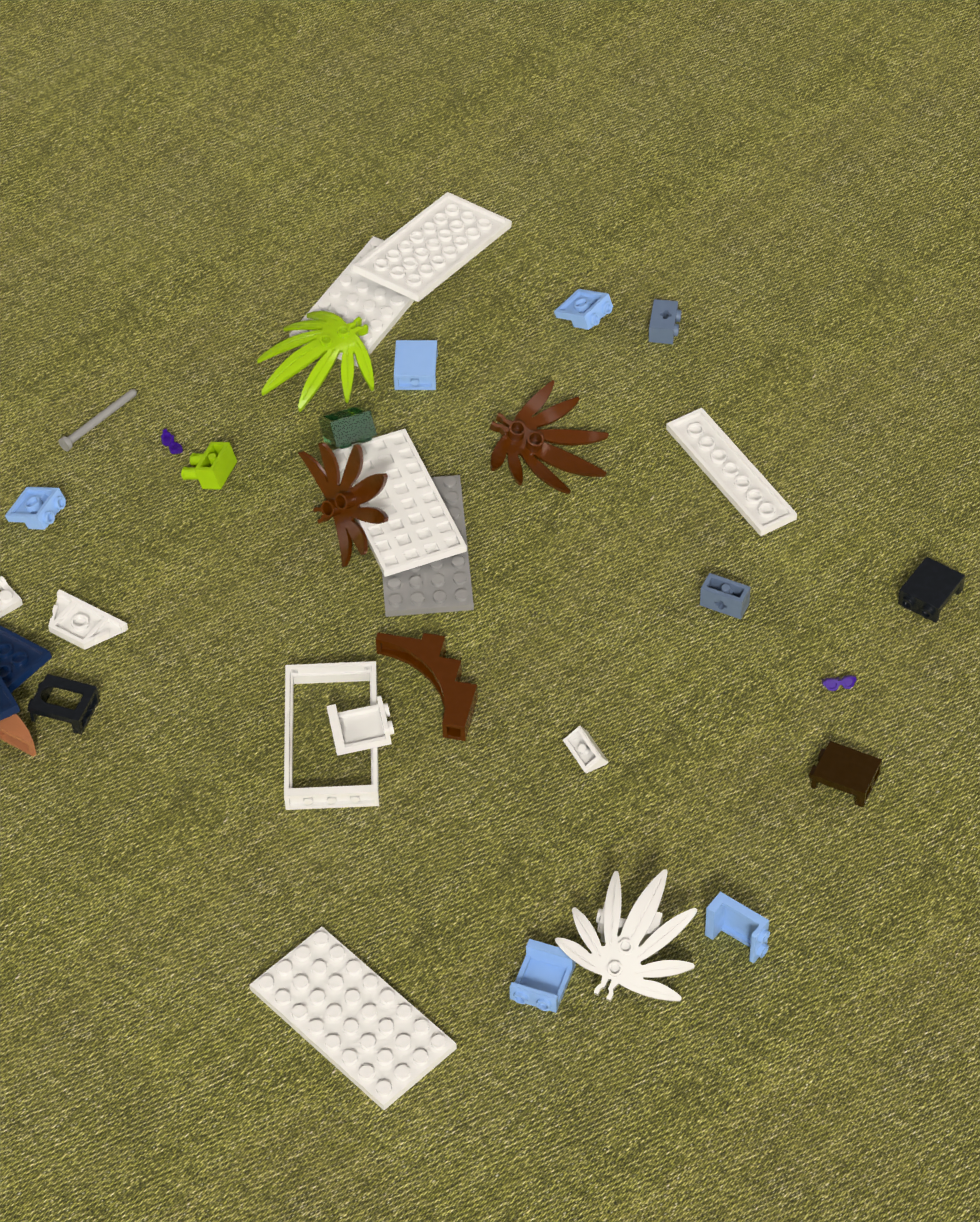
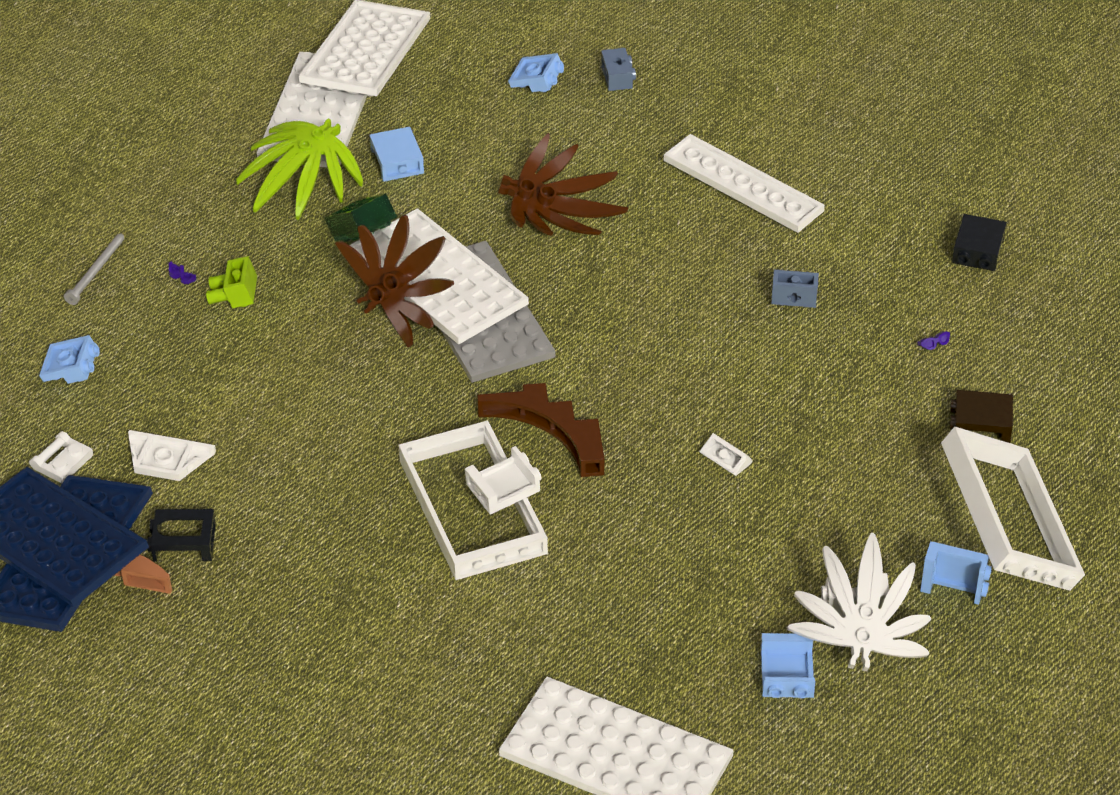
camera: 20 degrees left, 5 degrees down
(845, 820) = (960, 450): none -> white door

